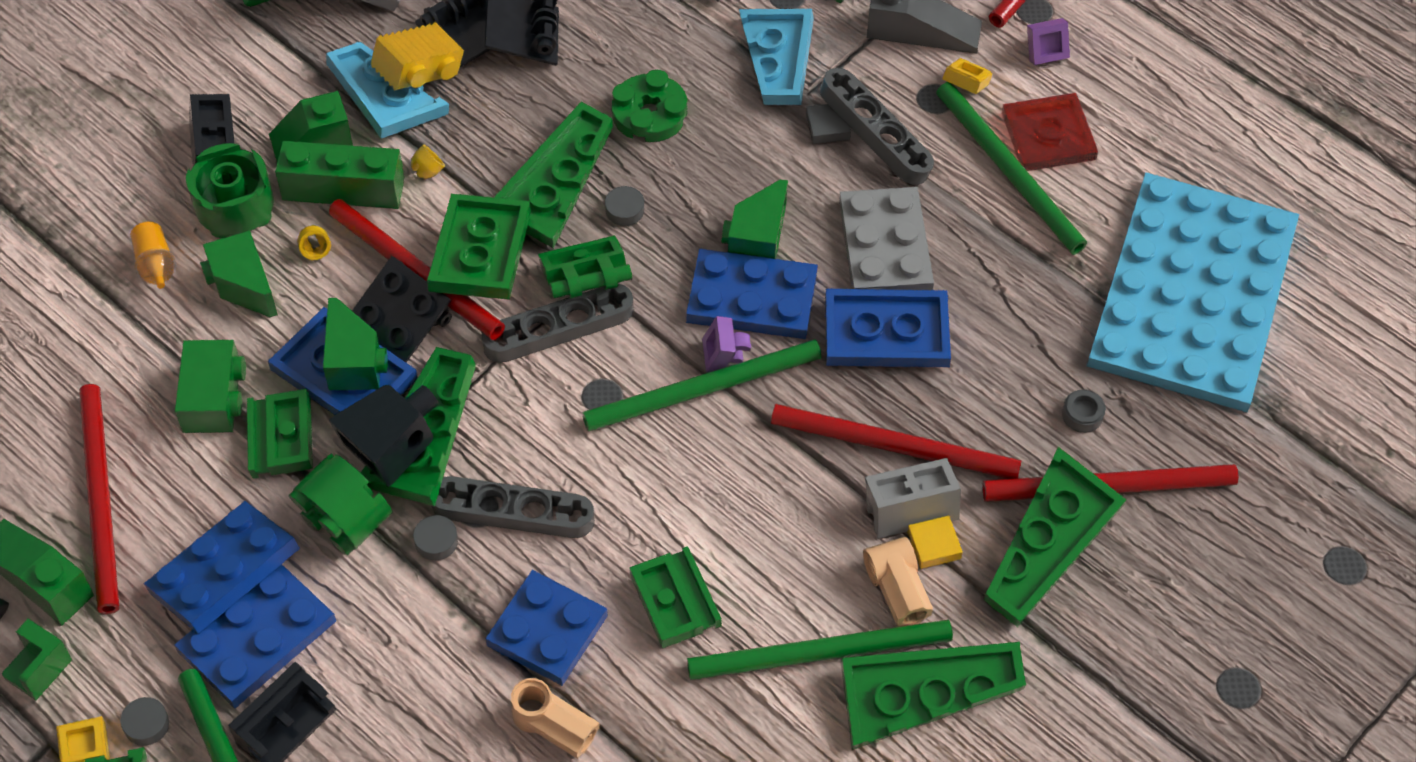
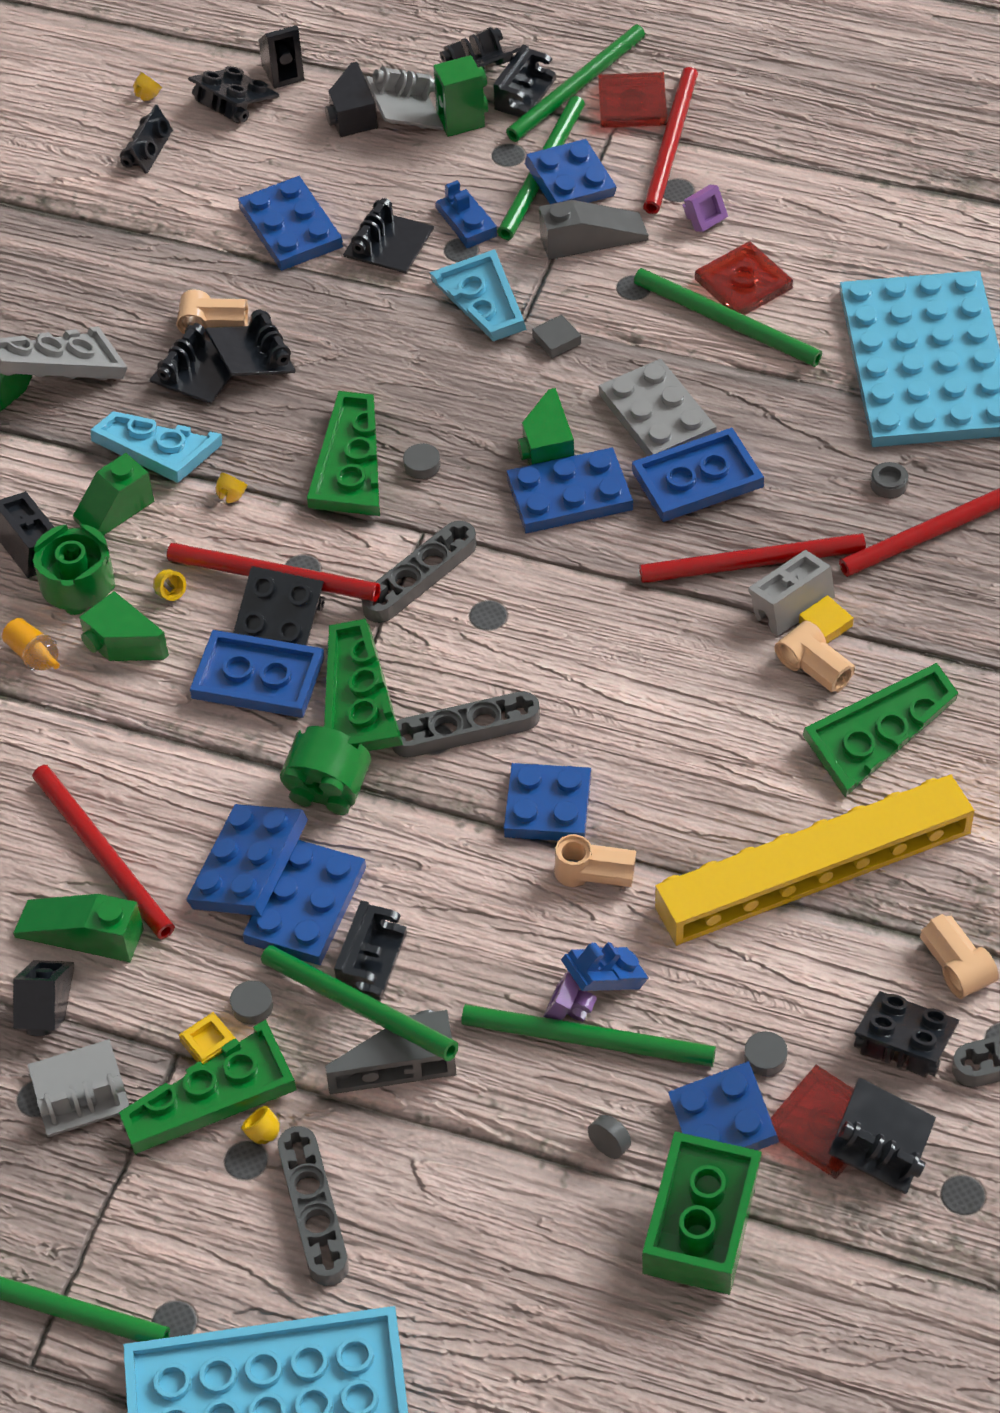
camera: 20 degrees left, 5 degrees down
(38, 662) = (130, 991): green panel -> none
(209, 386) = (149, 728): green brick -> none
(279, 433) = (233, 742): green plate -> none
(340, 172) = (155, 521): green brick -> none
(351, 351) = (263, 649): green slope -> none
(387, 430) = (331, 697): black torso -> none
(416, 56) = (175, 403): yellow brick -> none
(435, 537) = (414, 771): dark grey tile -> none
(479, 246) = (325, 530): green plate -> none
(585, 267) = (420, 518): green plate -> none
(649, 89) = (393, 361): green plate -> none
(675, 597) = (641, 738): green plate -> none
(701, 385) = (567, 575): green piece -> none
(723, 345) = (570, 536): medium lavender tile -> none
(819, 649) = (777, 733): green piece -> none
(907, 157) = (636, 339): dark grey beam -> none
(967, 76) = (653, 258): yellow tile -> none
(1055, 531) = (918, 574): green wing -> none

